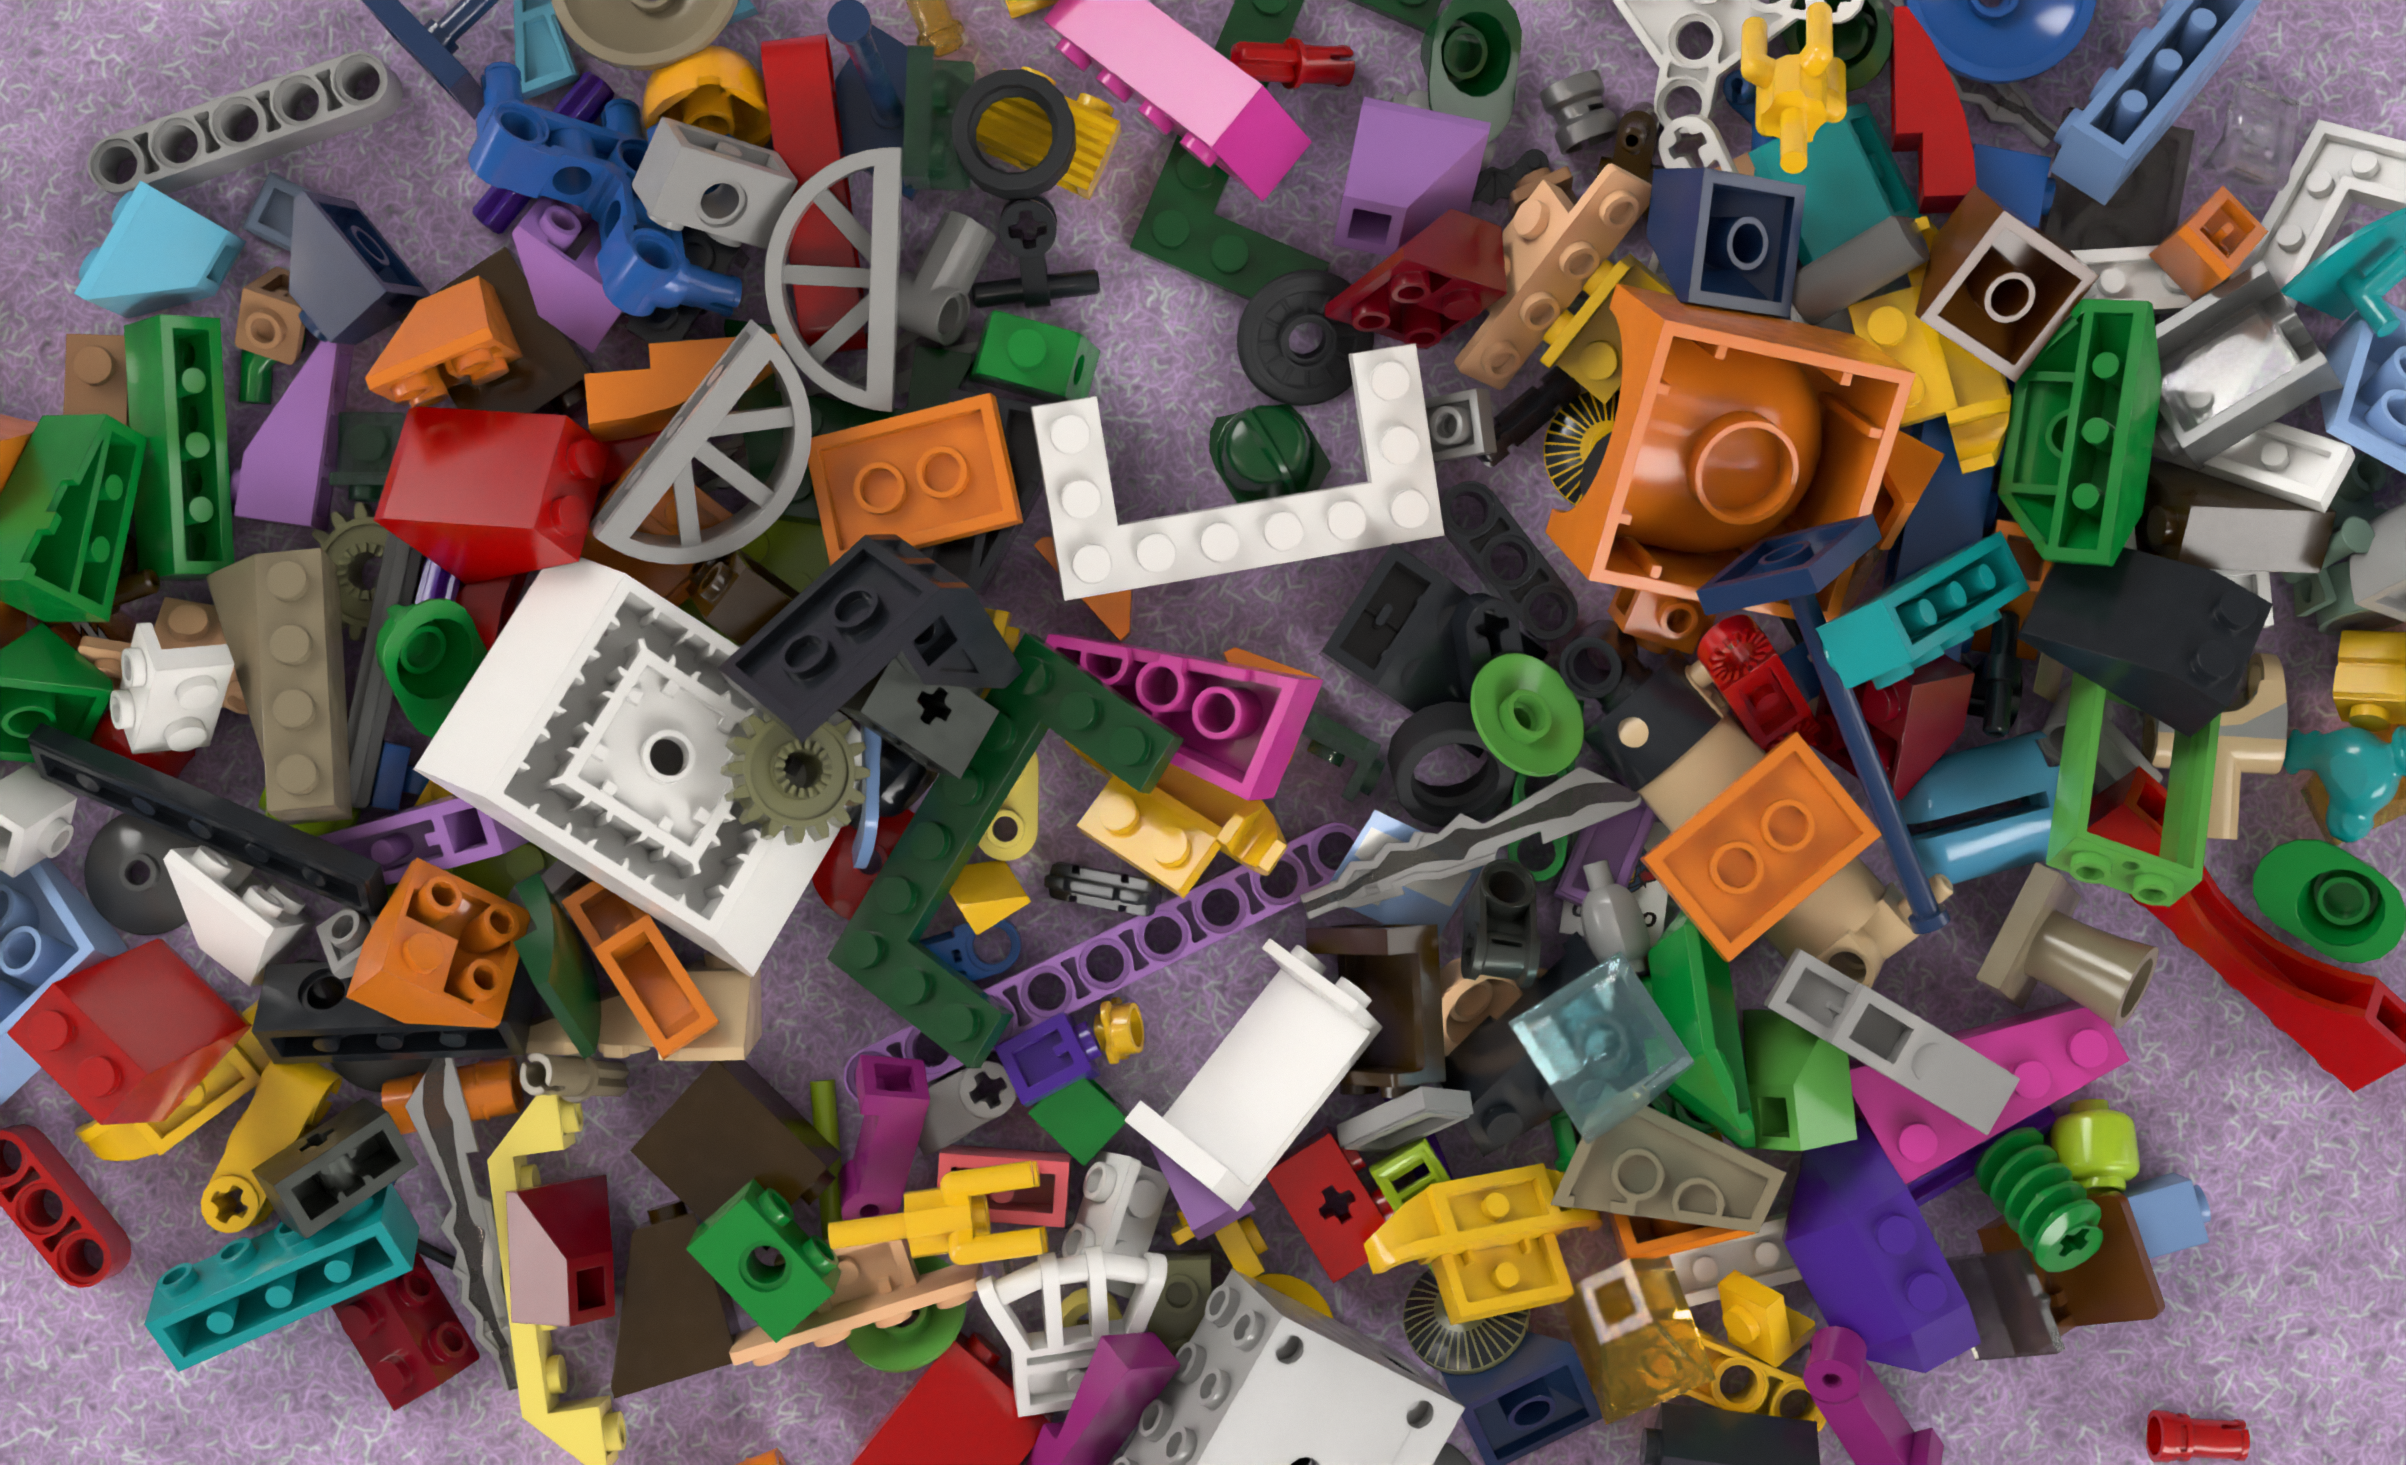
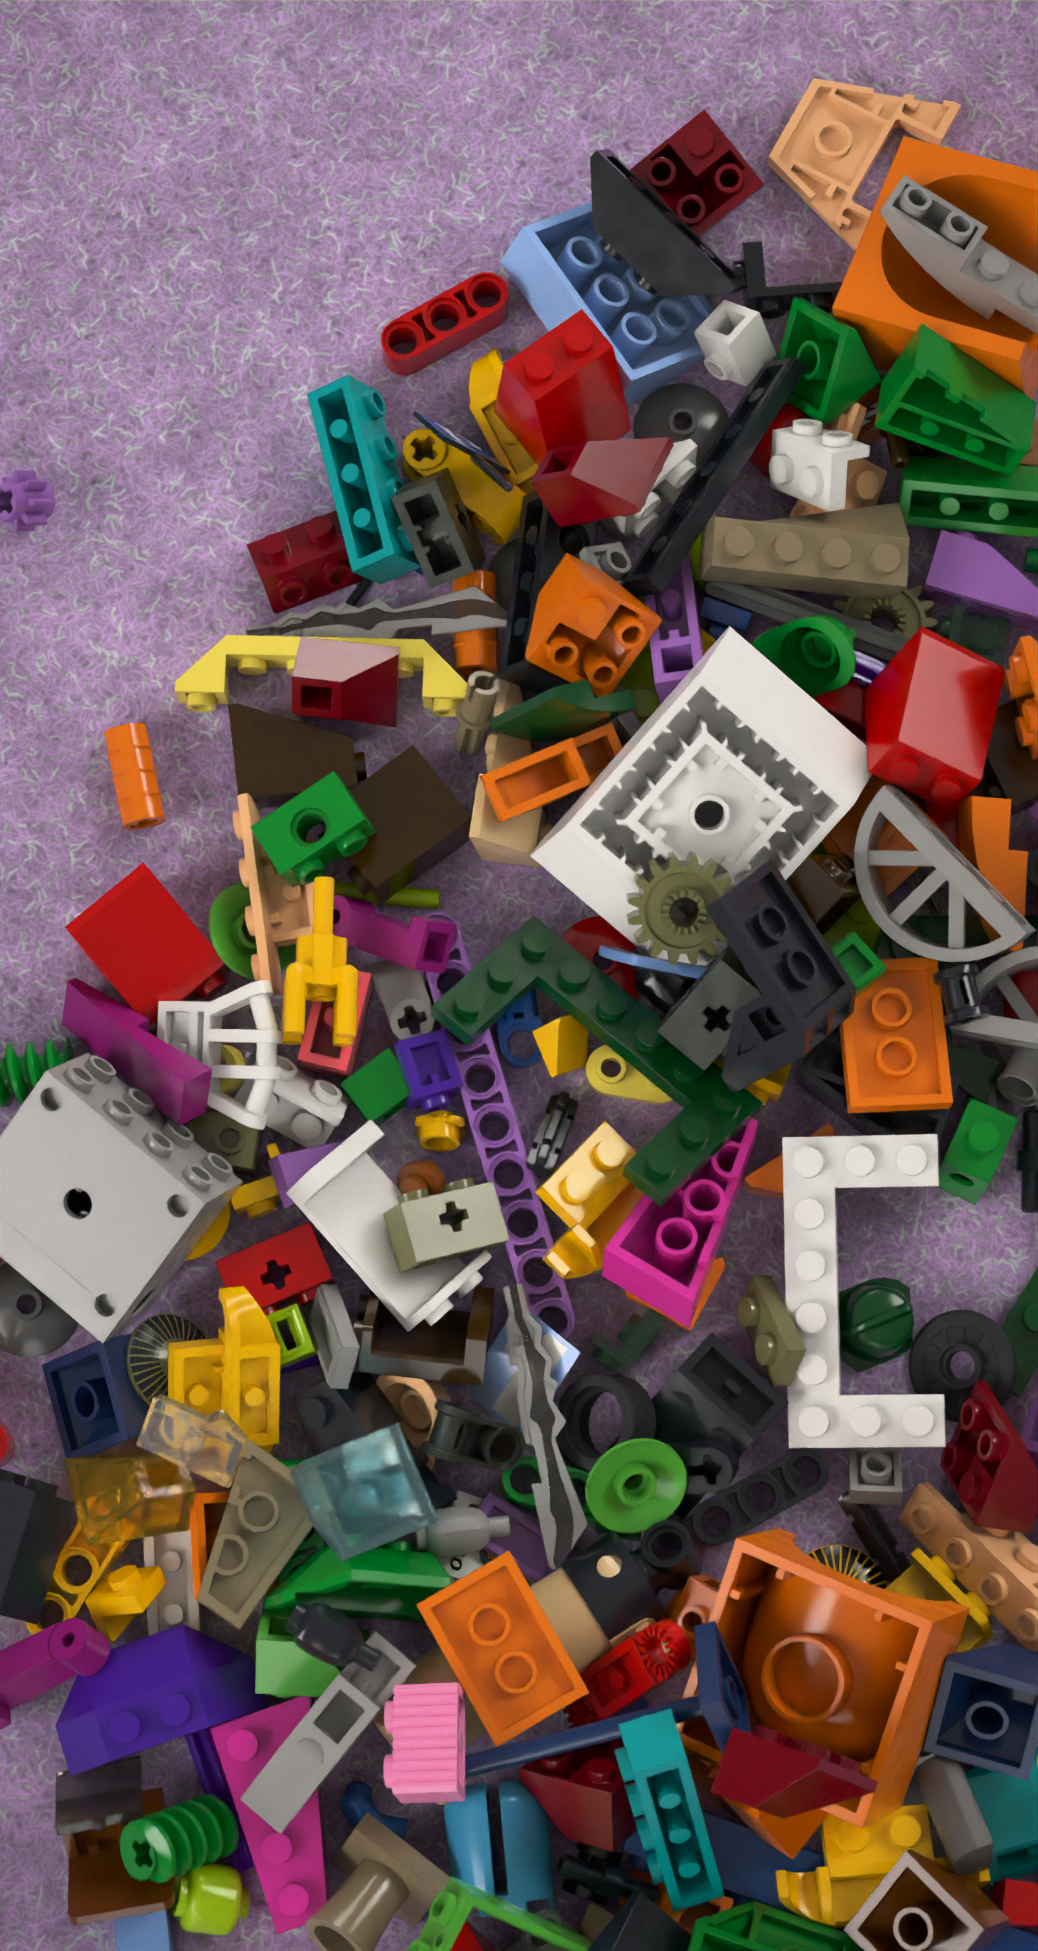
camera: 100 degrees right, 10 degrees down
(226, 1131) = (478, 454): none -> black piece
(237, 970) = (599, 478): none -> dark red slope
(828, 538) = (859, 962): none -> green tile
(850, 401) = (961, 995): none -> black bush
(1190, 1041) = (421, 1175): none -> dark orange plate
(1262, 1034) = (422, 1240): none -> brick
(1305, 578) = (771, 1331): none -> olive plate
(1568, 1271) = (196, 1441): none -> clear slope
(1785, 1060) = (330, 1636): none -> black plant
(1876, 475) = (786, 1774): none -> dark red slope
(1894, 921) = (426, 1743): none -> bright pink brick
(1960, 982) = (358, 1802): none -> blue arm

